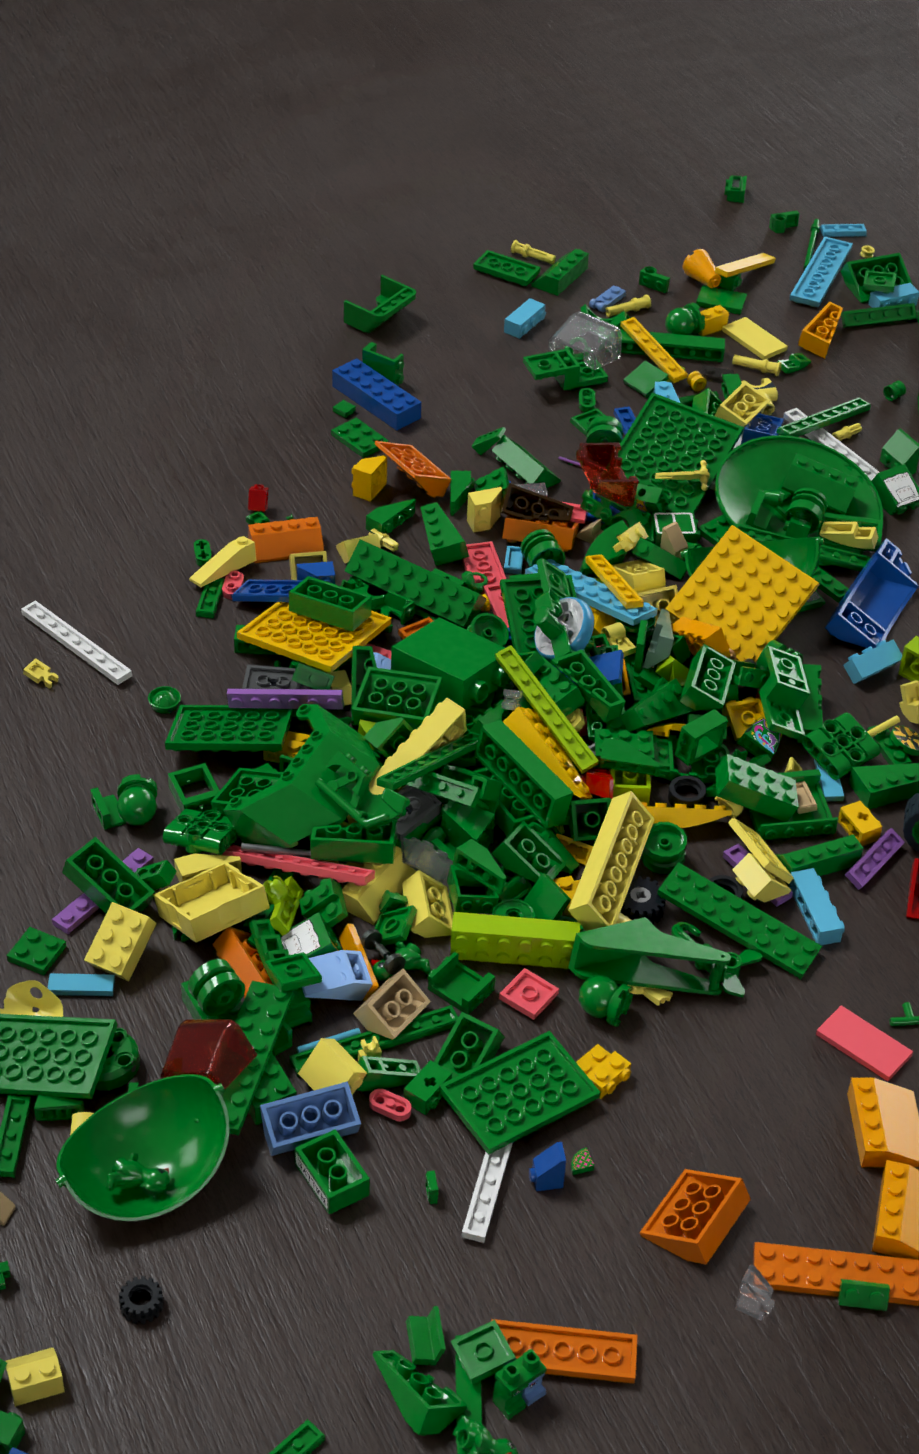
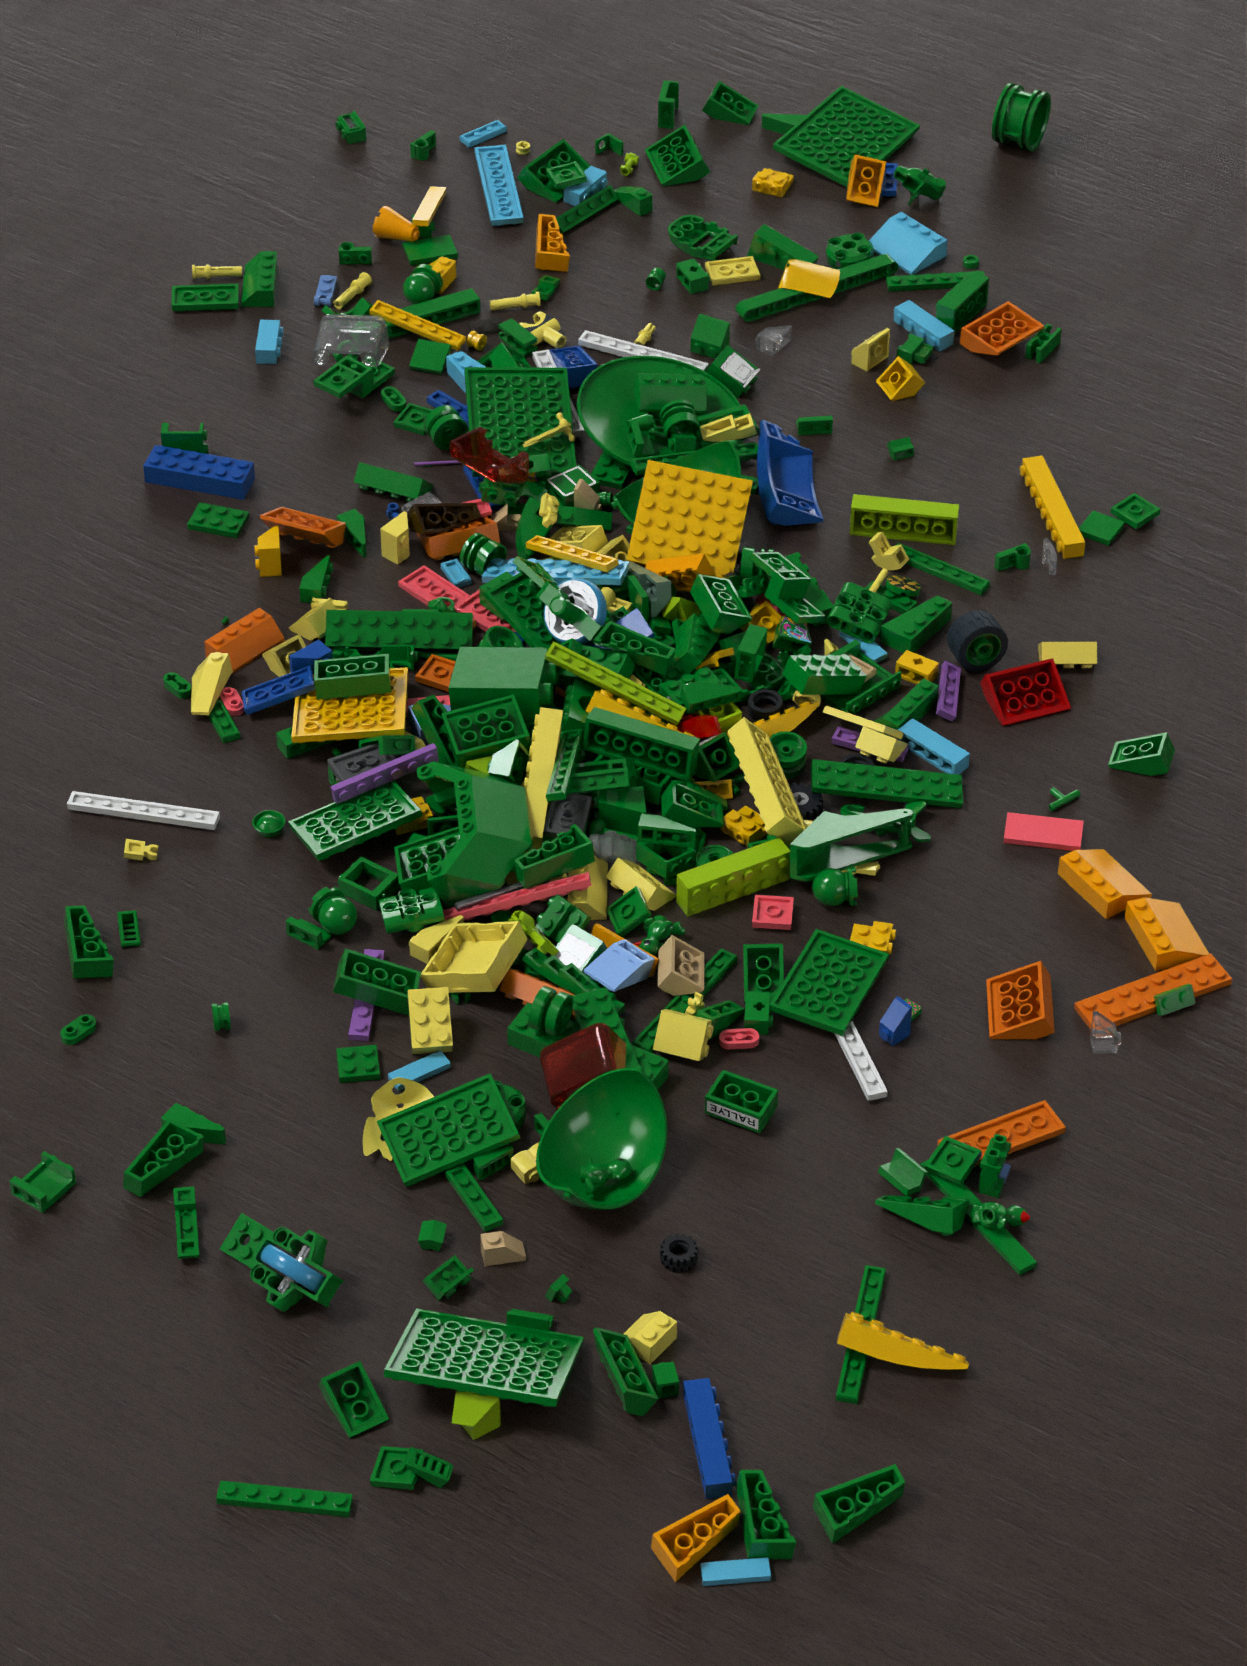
camera: 30 degrees left, 0 degrees up
(157, 875) = (411, 957): green piece -> none
(257, 517) = (197, 634): green tile -> none
(258, 498) = (185, 614): red brick -> none
(292, 971) = (594, 975): green tile -> none
(308, 1116) = (694, 1073): medium blue slope -> none
(312, 1045) = (650, 1018): medium azure bar -> none
(344, 408) = (178, 499): green tile -> none
(365, 808) = (553, 823): green piece -> none
(392, 299) = (136, 374): green windscreen -> none
(392, 901) = (611, 893): green tile -> none
(394, 963) = (659, 934): pearl dark grey wheel -> none
(431, 1187) = (820, 1077): green tile -> none
(443, 537) = (379, 577): green wedge -> none
(460, 984) = (715, 931): green panel -> none
(487, 440) = (340, 476): green slope -> none
(496, 479) = (382, 512): green plate -> none
(511, 699) = (583, 692): clear wheel -> none
(547, 899) = (732, 833): green tile -> none
(742, 405) = (545, 347): light yellow slope -> none
(754, 338) = (491, 277): light yellow tile -> none
(814, 231) = (457, 143): green bar -> none
(824, 418) = (619, 330): green tile -> none
(872, 660) = (827, 531): medium azure brick -> none

